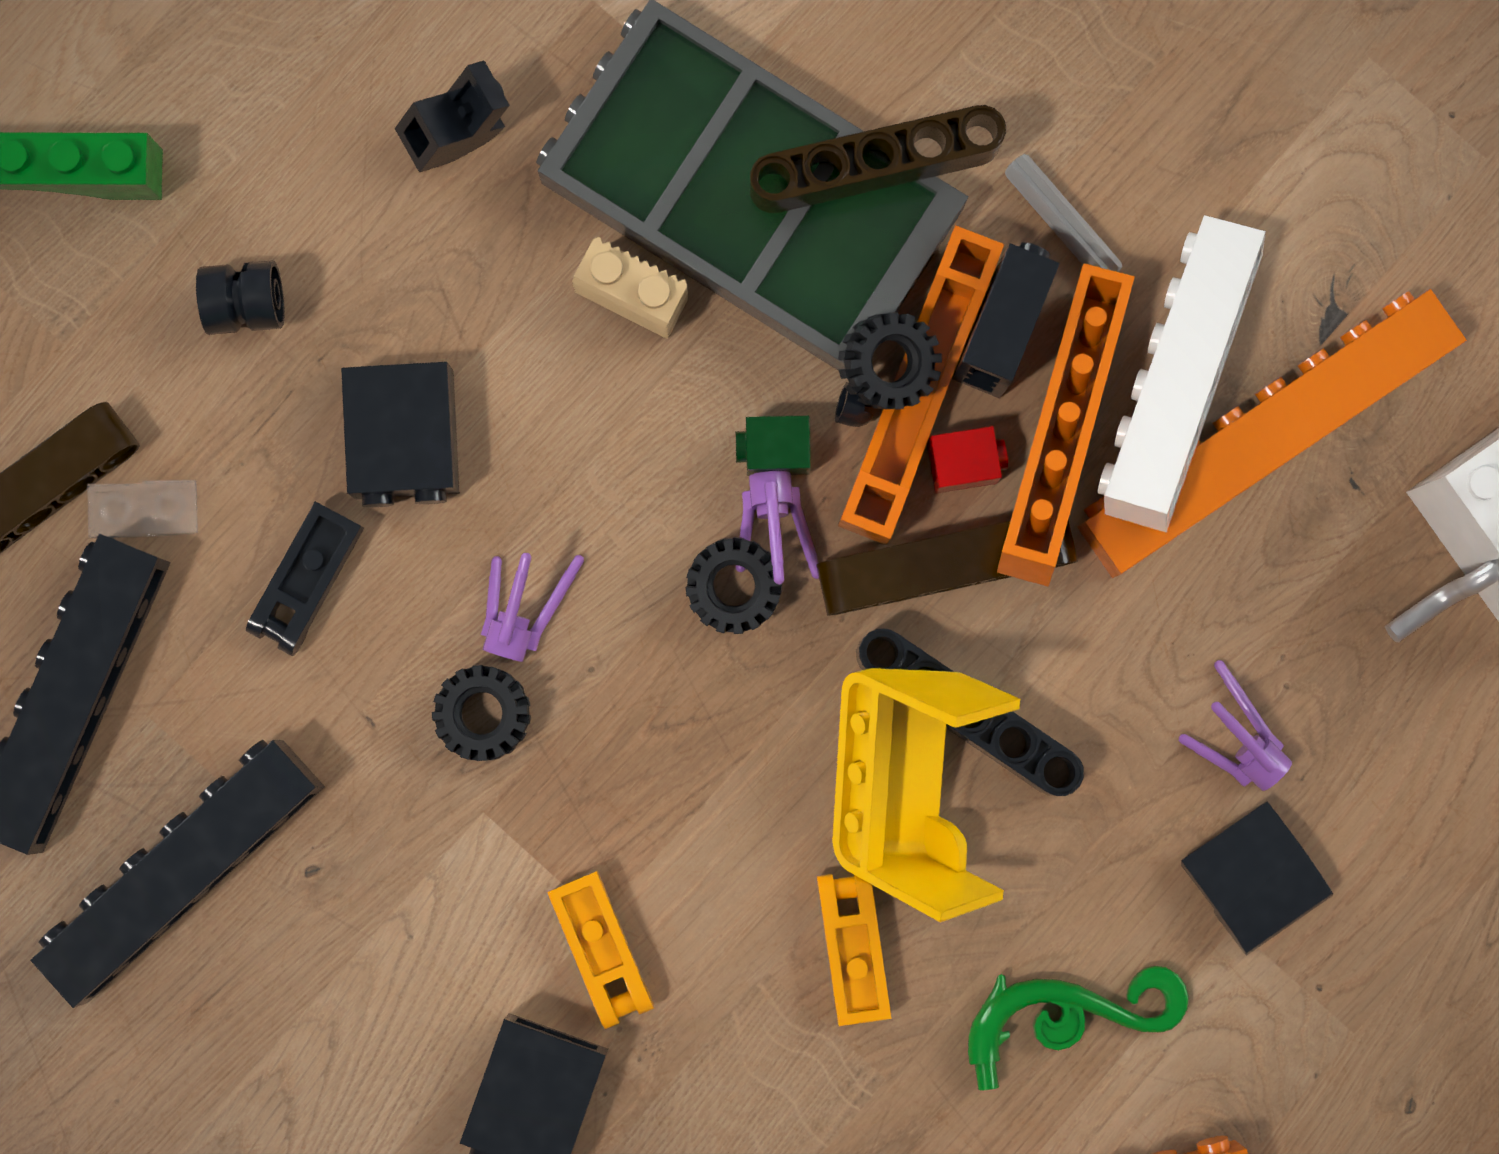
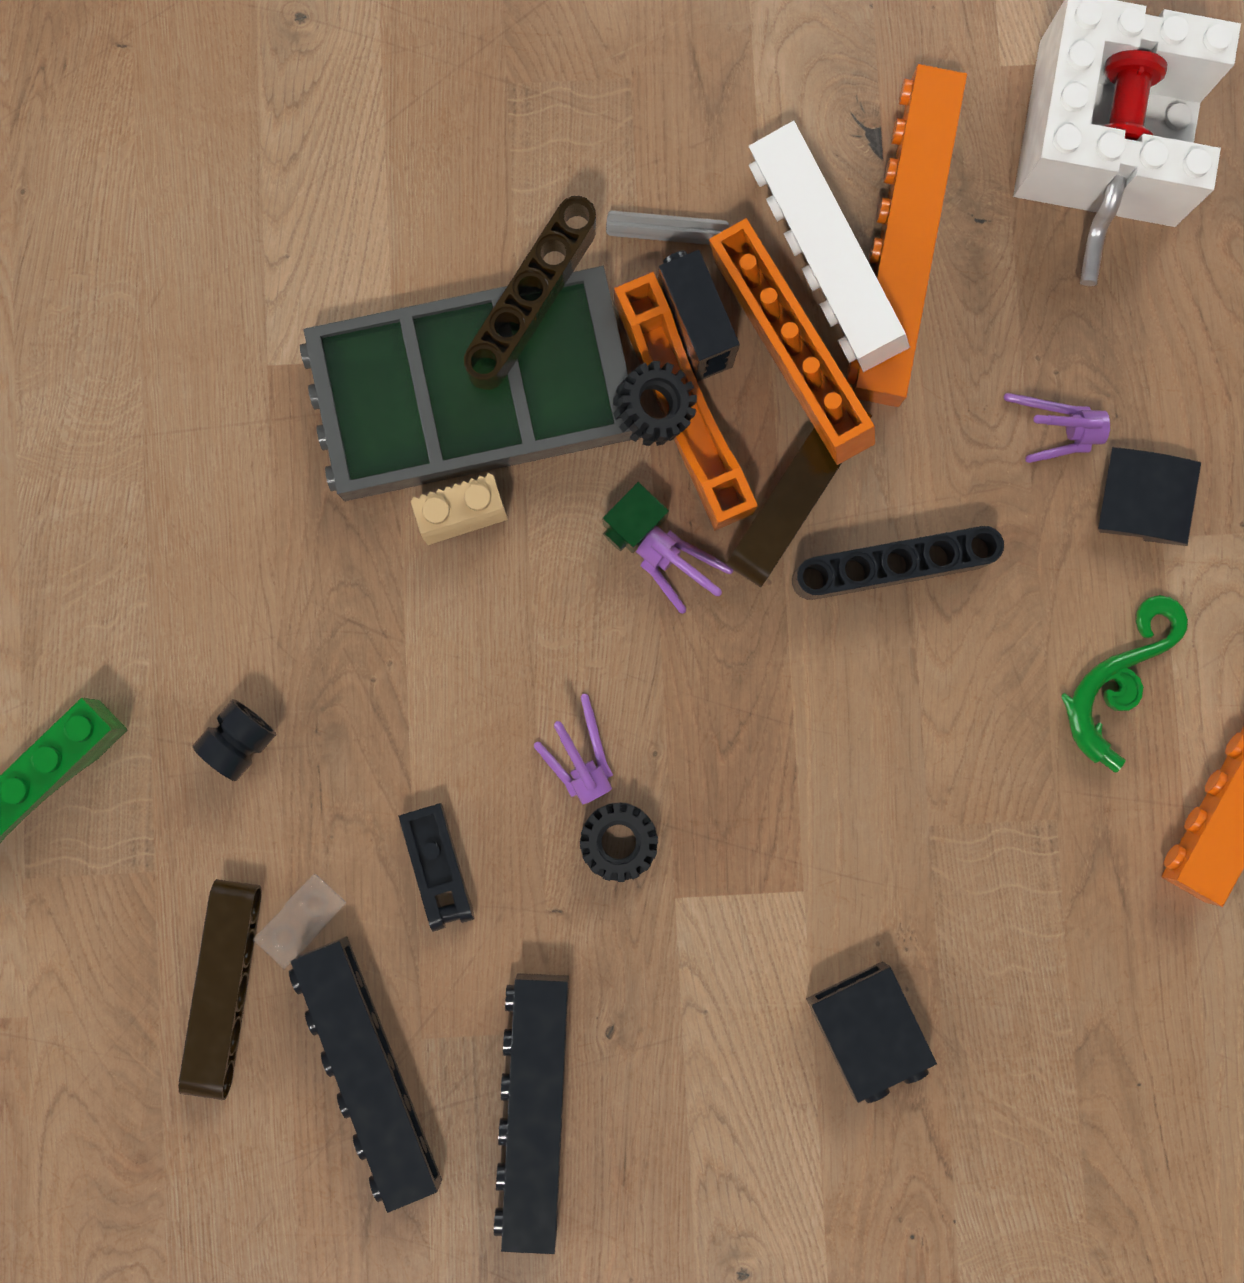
camera: 45 degrees left, 0 degrees up
(400, 433) = (408, 726): black brick -> none
(455, 121) = (259, 512): black brick -> none
(600, 948) = (821, 908): light orange plate -> none
(703, 596) = (709, 641): black tyre -> none
(850, 411) = (655, 456): black hinge -> none
(854, 951) = (967, 763): light orange plate -> none
(892, 785) = (897, 649): yellow windscreen -> none
(966, 459) = (751, 419): red brick -> none

